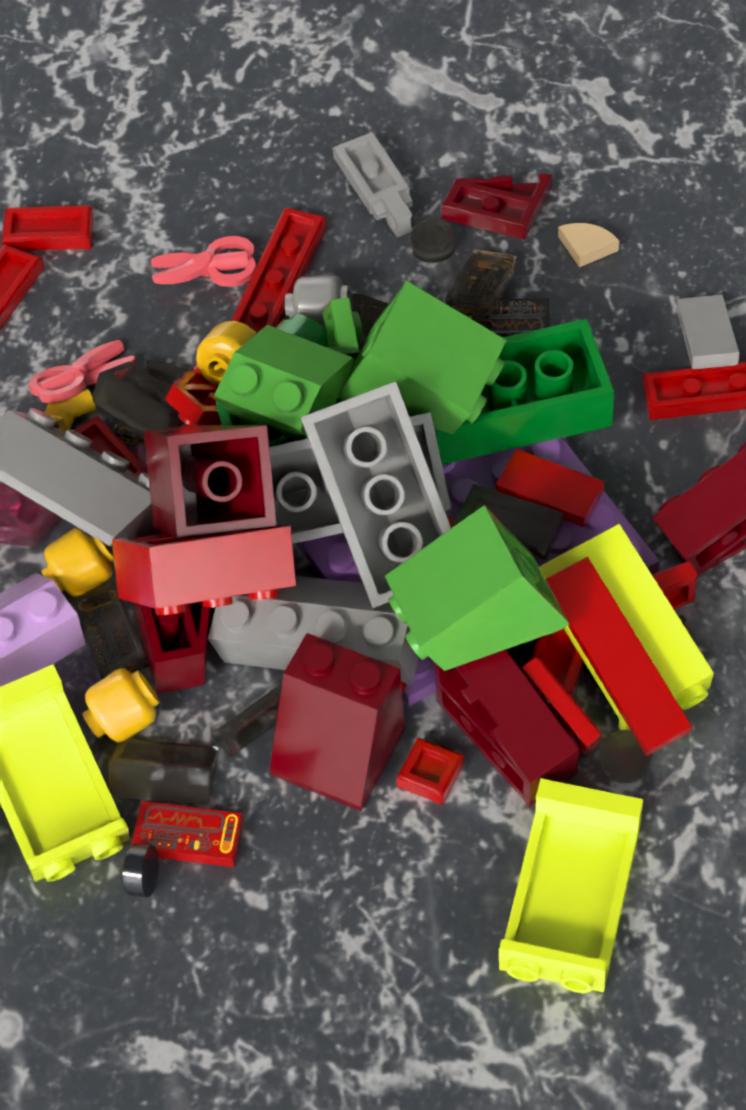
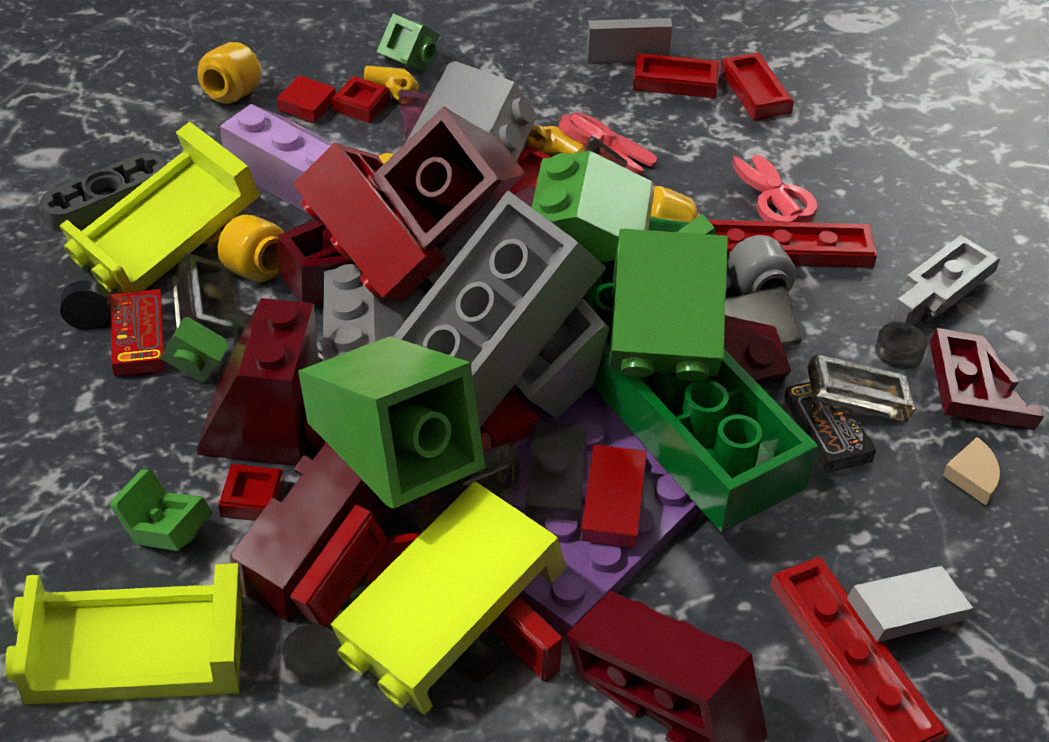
camera: 65 degrees right, 10 degrees down
(247, 783) = (194, 349): none -> bright green bracket
(446, 840) = (157, 516): none -> bright green bracket
(618, 657) = (393, 585): red tile -> none

